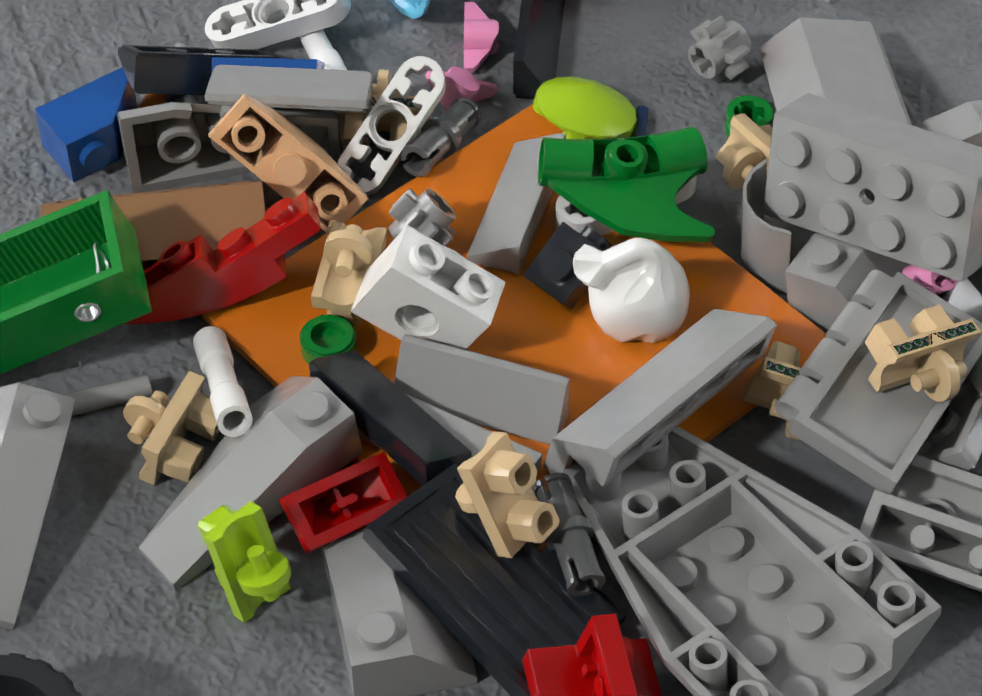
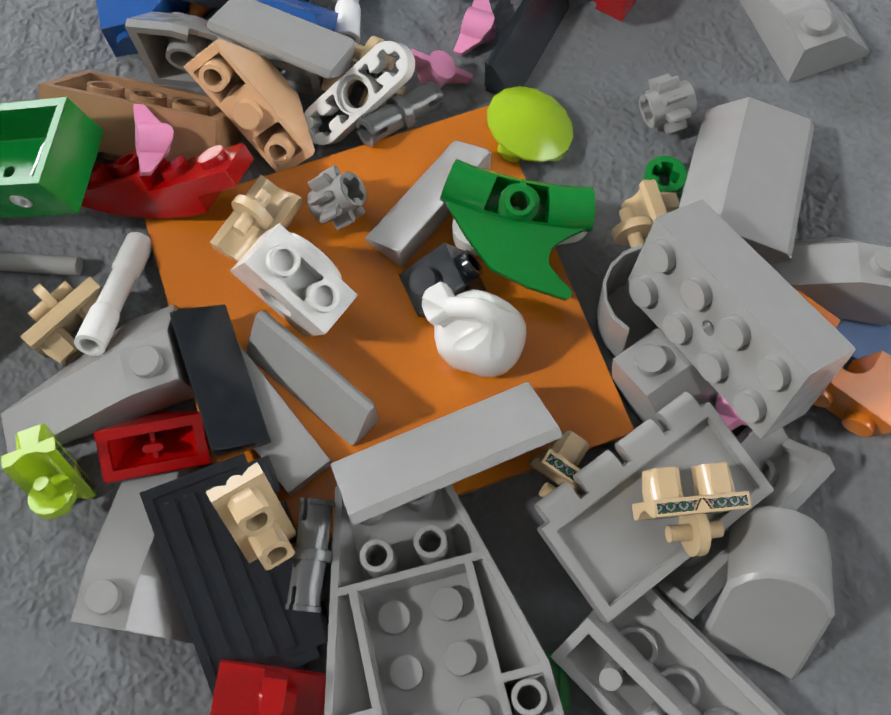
camera: 25 degrees right, 20 degrees up
(196, 218) = (151, 139): none -> bright pink piece
(327, 336) = (216, 282): green tile -> none
(642, 120) = (572, 153): dark blue piece -> none

